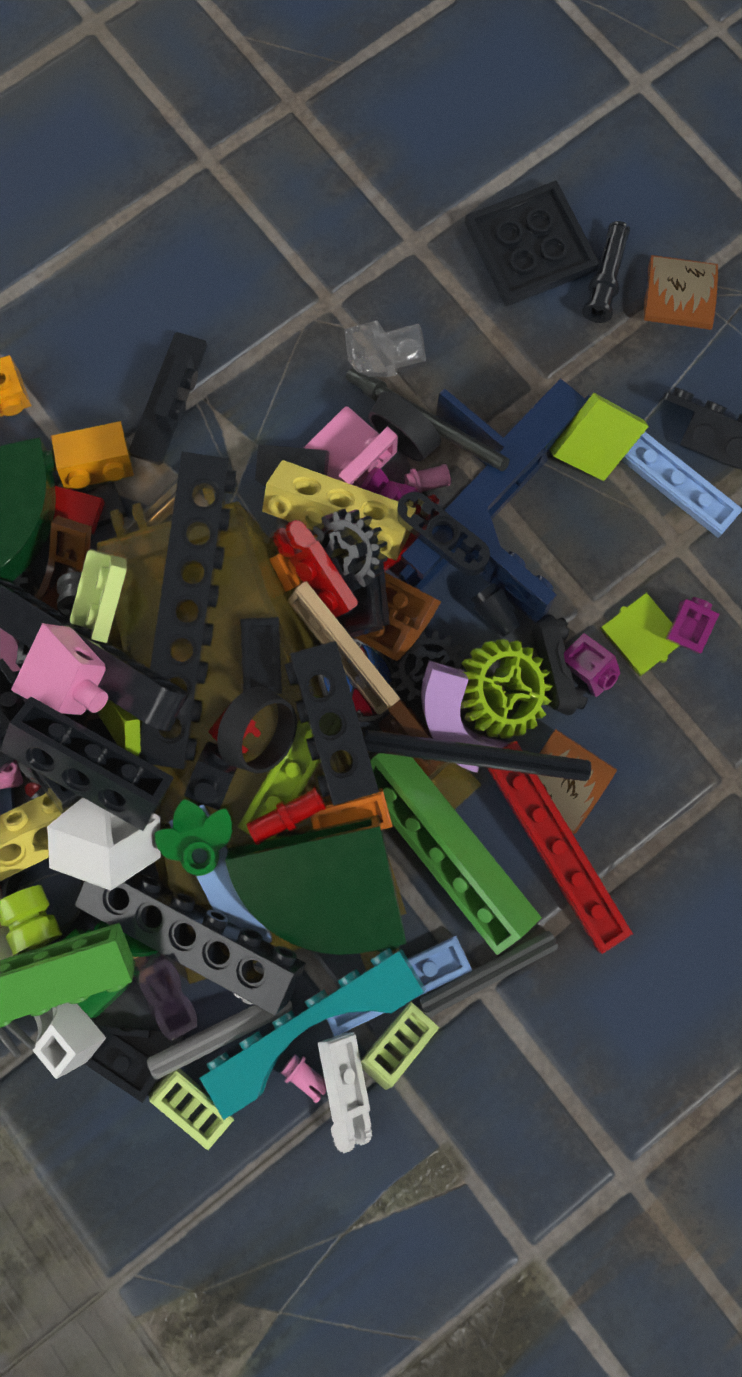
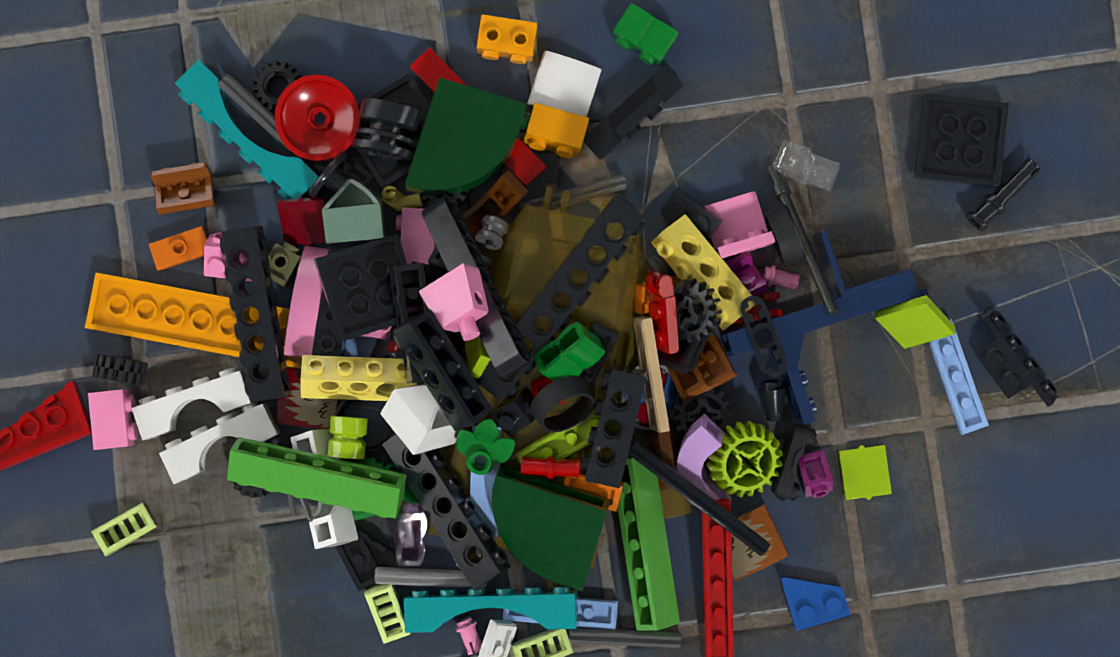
camera: 25 degrees right, 10 degrees up
(76, 402) = (564, 84): none -> white slope
(98, 593) = (510, 254): yellowish green bracket -> none
(136, 311) = (644, 34): none -> green brick
(231, 664) = (569, 353): none -> green brick
(676, 808) = (813, 602): none -> blue wing
(681, 292) = (1047, 240): slope -> none
(693, 624) = (901, 487): magenta bracket -> none

